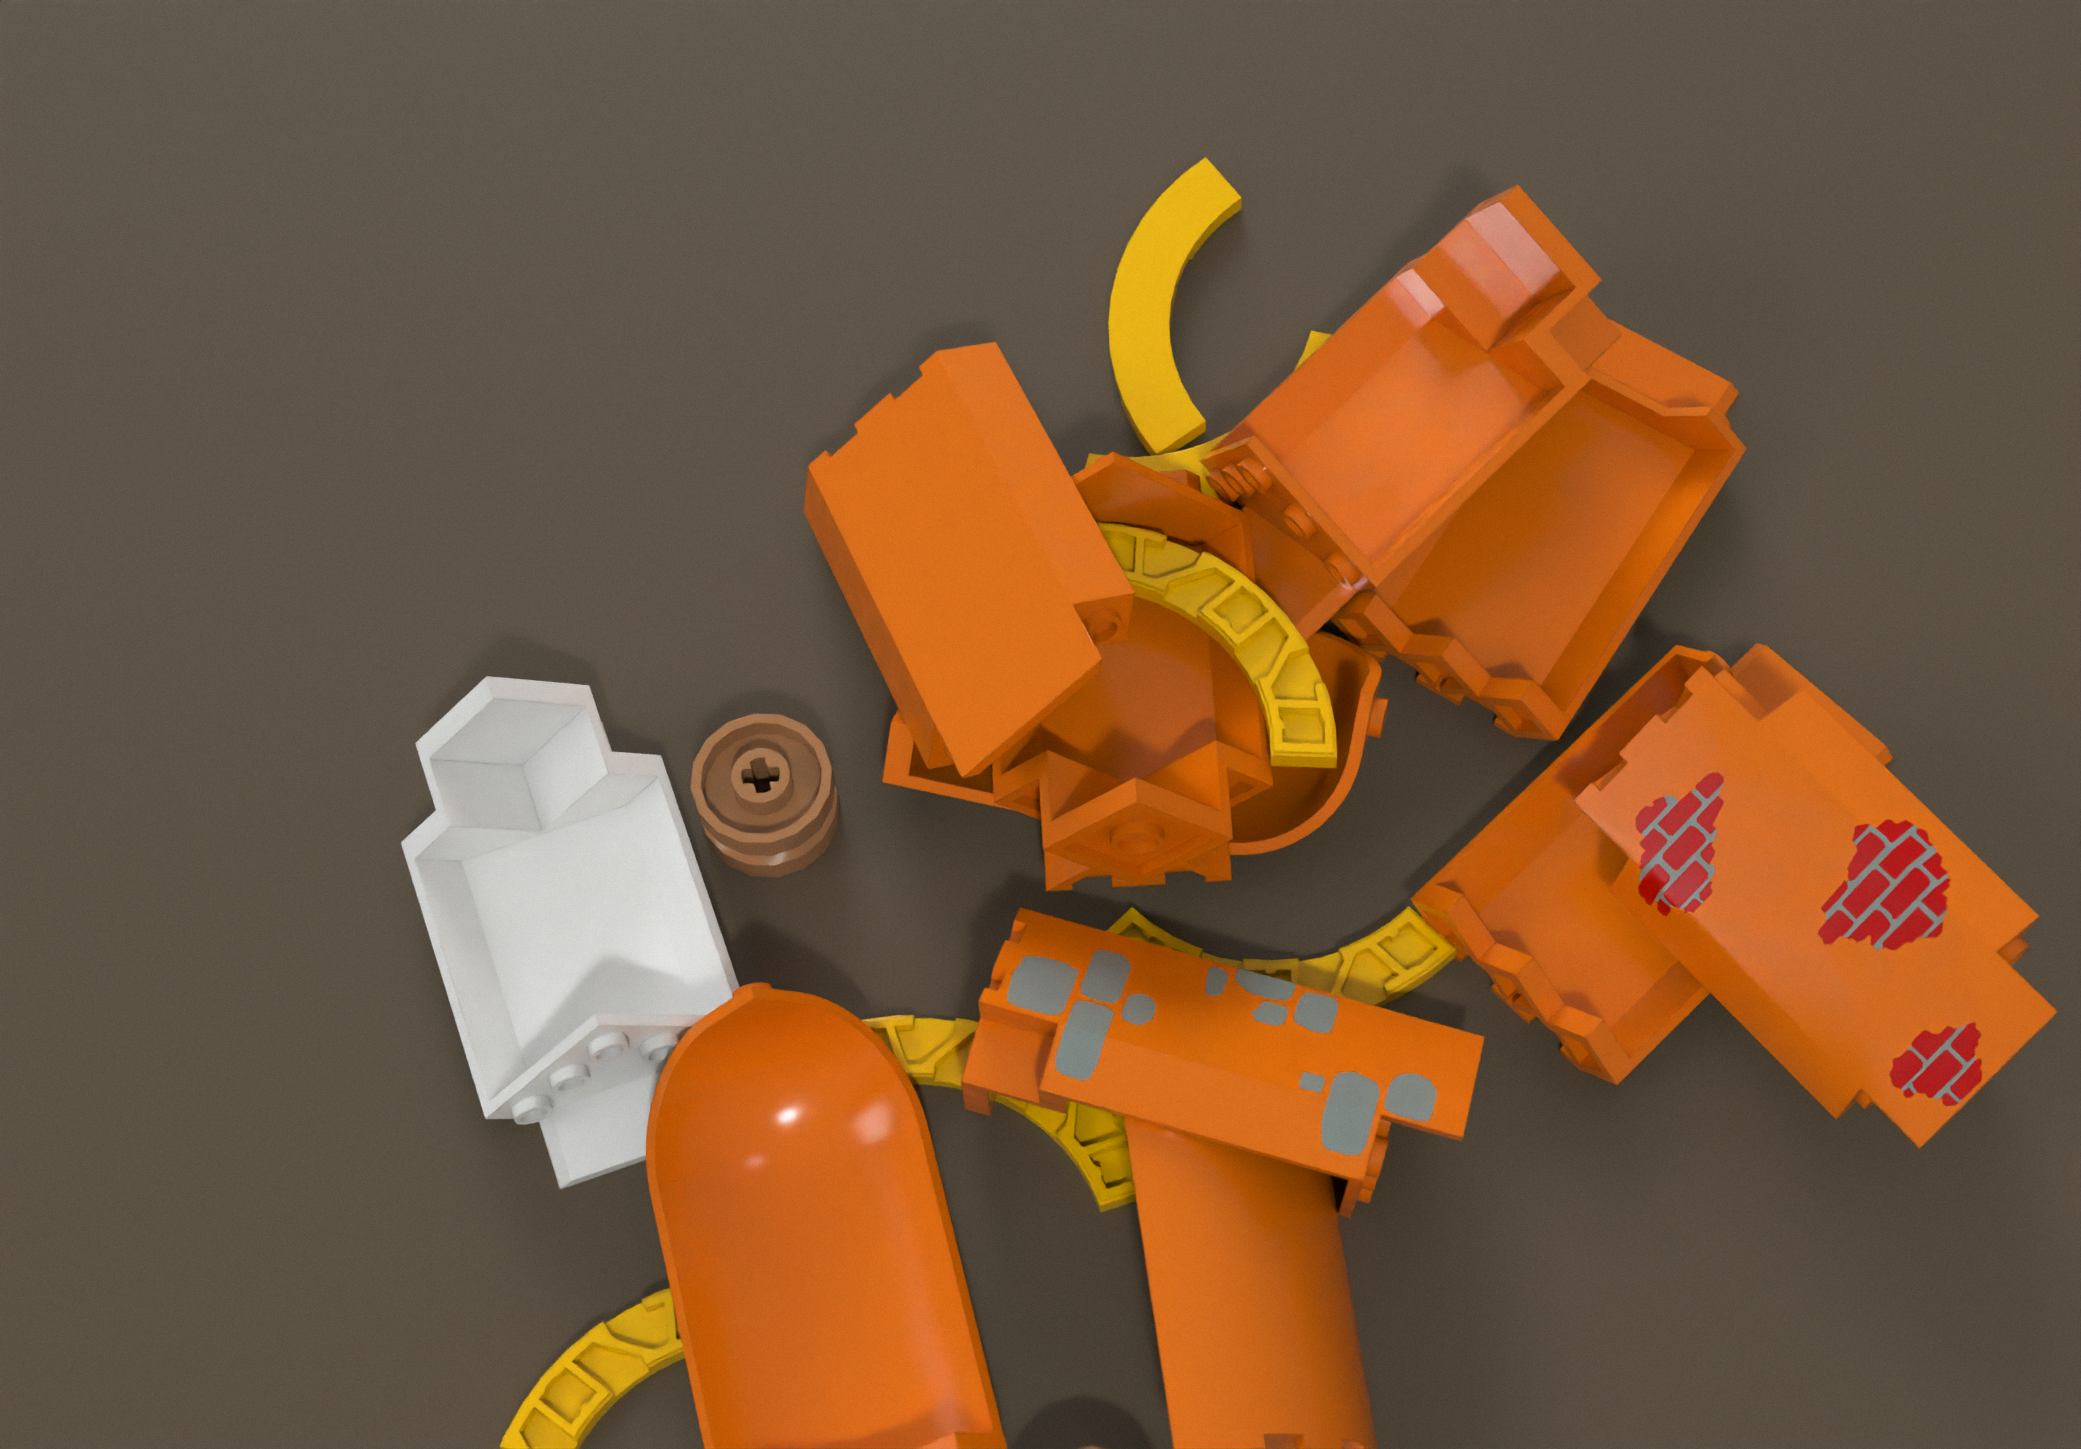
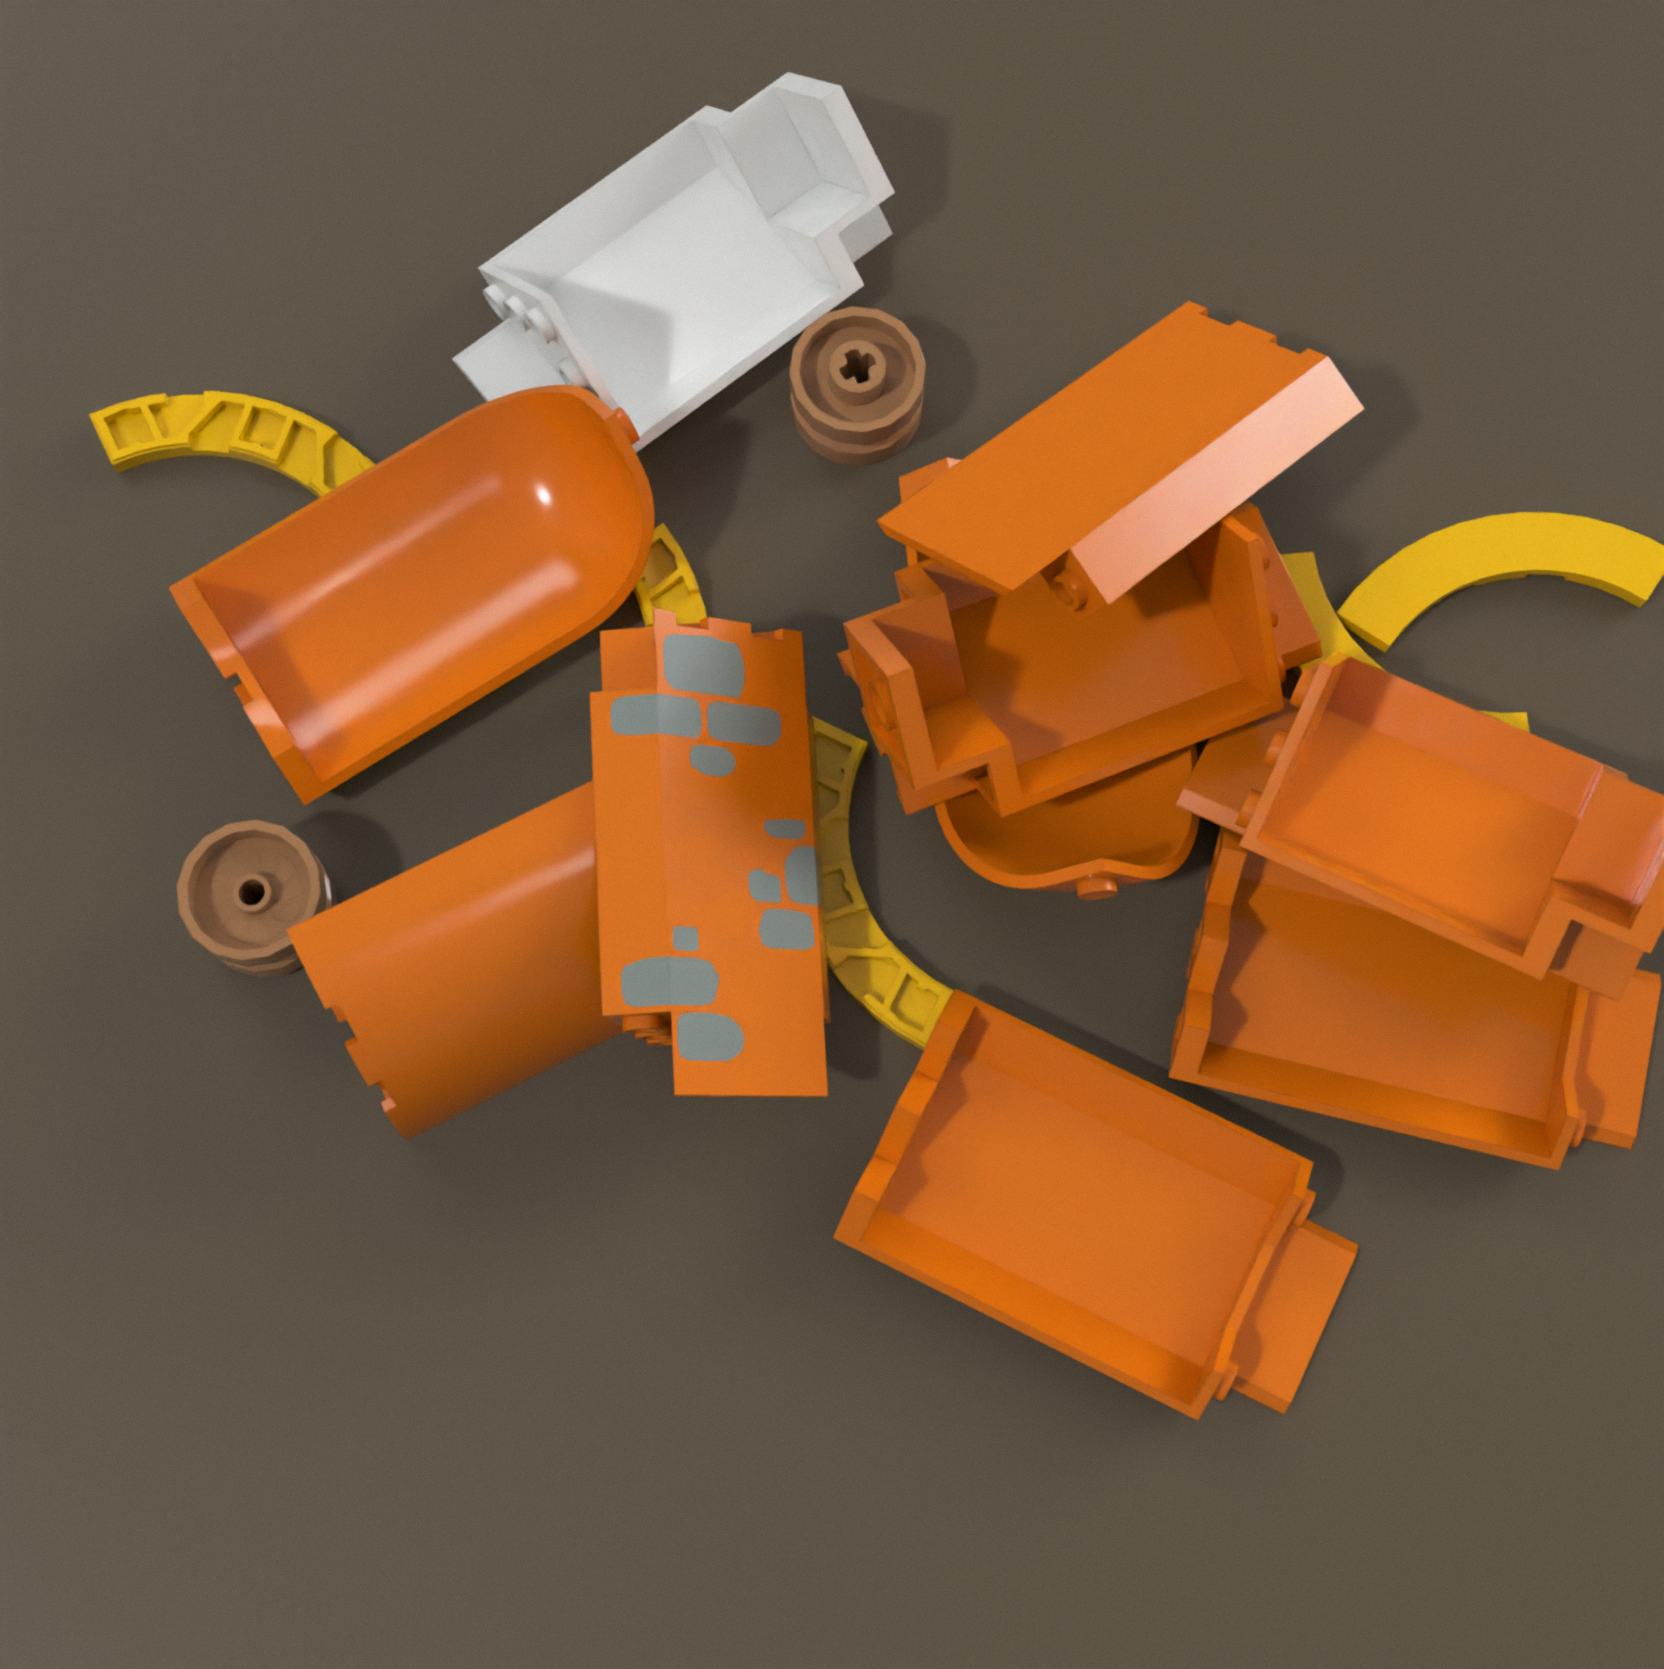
camera: 65 degrees right, 10 degrees up
(1249, 630) = (1159, 735): yellow tile -> none
(1820, 903) = (1061, 1376): orange panel -> none

